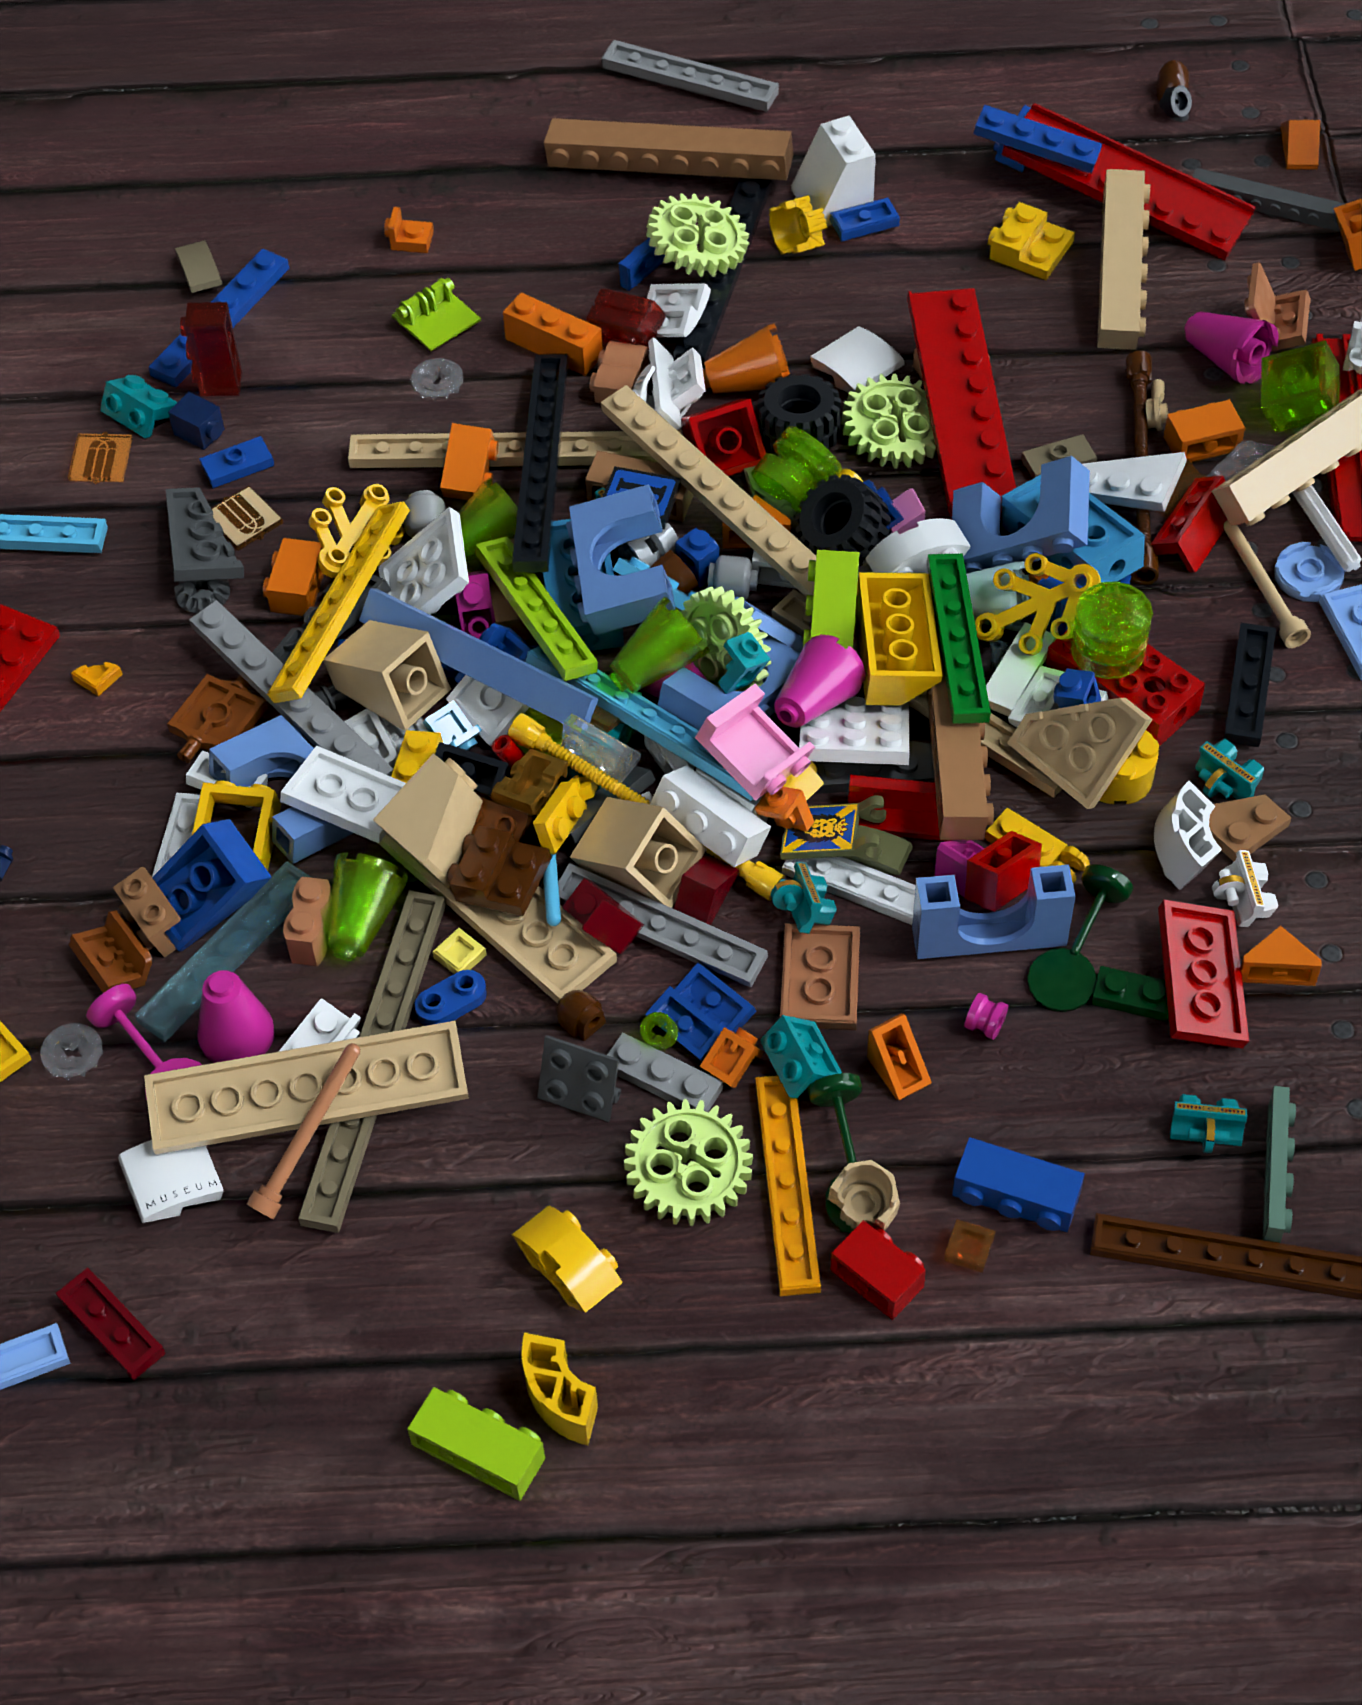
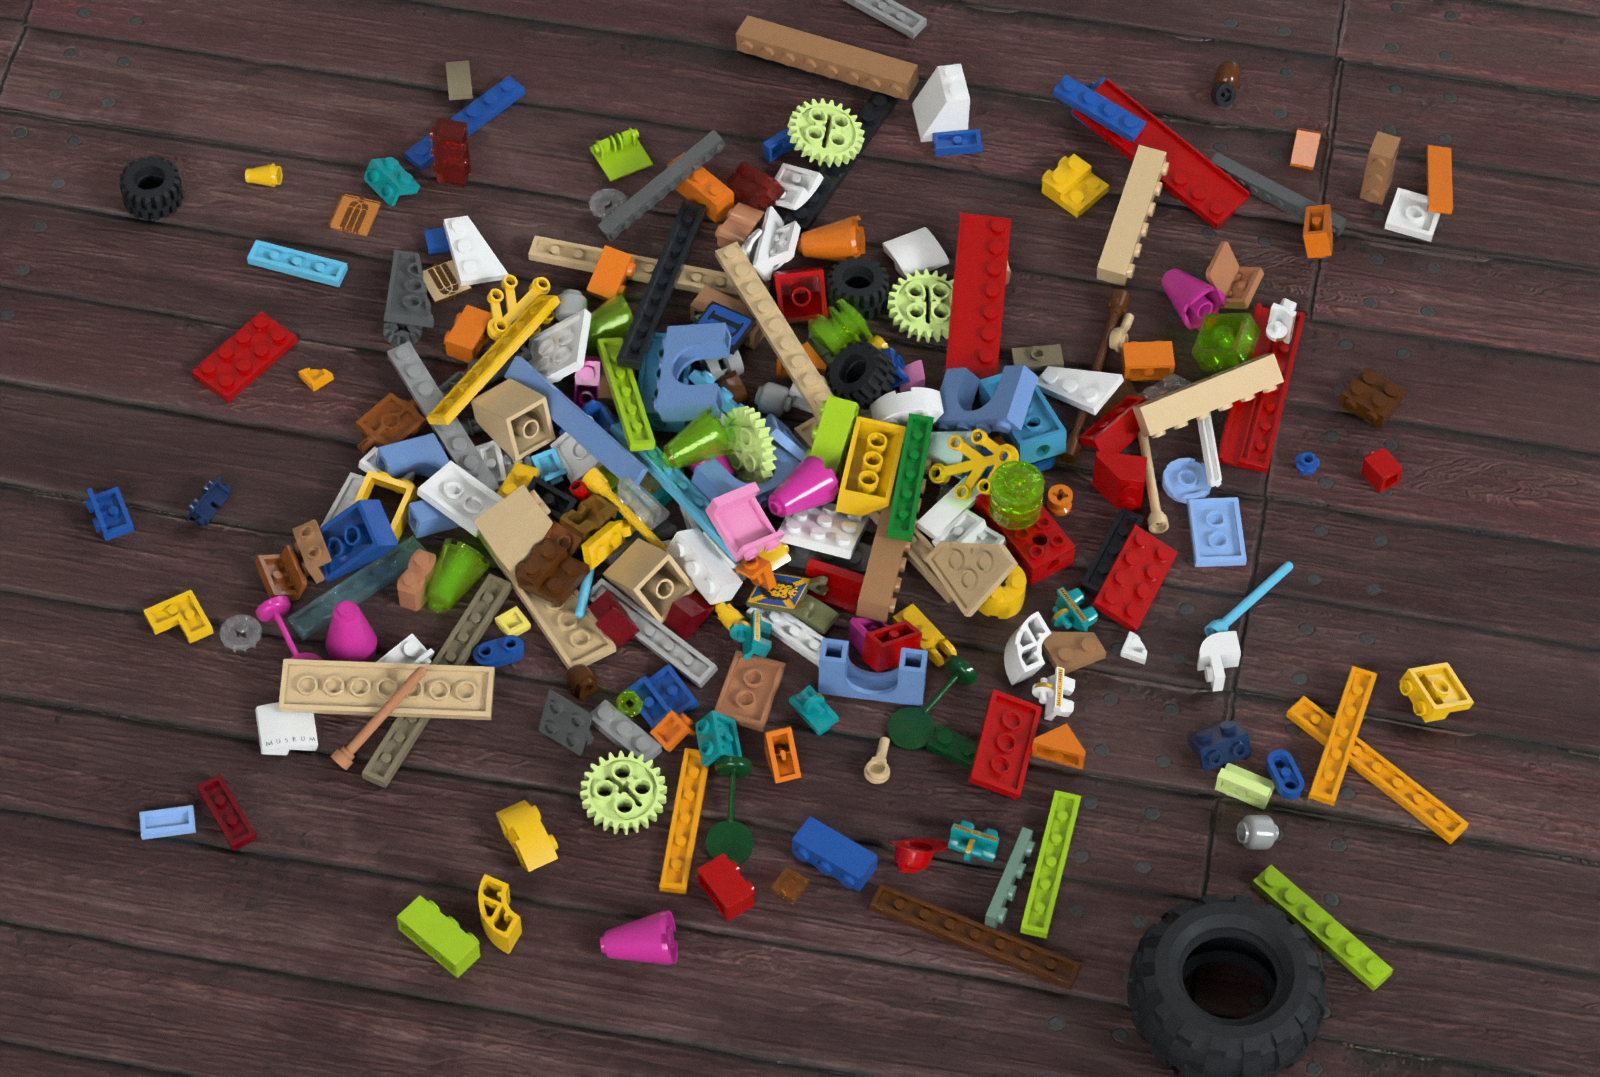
camera: 10 degrees right, 0 degrees up
(196, 420) = (428, 201): dark blue brick -> none
(271, 474) = (471, 254): none -> white wing
(407, 234) = (618, 85): orange bracket -> none
(504, 337) = (661, 185): none -> dark grey piece
(700, 550) = (753, 375): blue brick -> none
(746, 662) = (755, 465): teal bracket -> none
(783, 1379) = (643, 940): none -> dark pink cone
(797, 226) = (903, 139): yellow hair -> none
(865, 1193) = (731, 837): tan hair -> none
(922, 983) = (814, 710): none -> teal hips
(986, 1016) = (850, 740): dark pink wheel -> none
(1036, 1048) = (877, 769): none -> tan plate
(1076, 688) = (980, 530): blue brick -> none
(1135, 1156) = (916, 853): none -> red piece
(1161, 638) = (1059, 500): none -> orange wheel
(1230, 585) = (1120, 479): none -> red slope
(1292, 712) = (1134, 578): none -> red plate
(1324, 805) = (1134, 649): none -> white tile
(1326, 1132) = (1050, 864): none -> lime plate

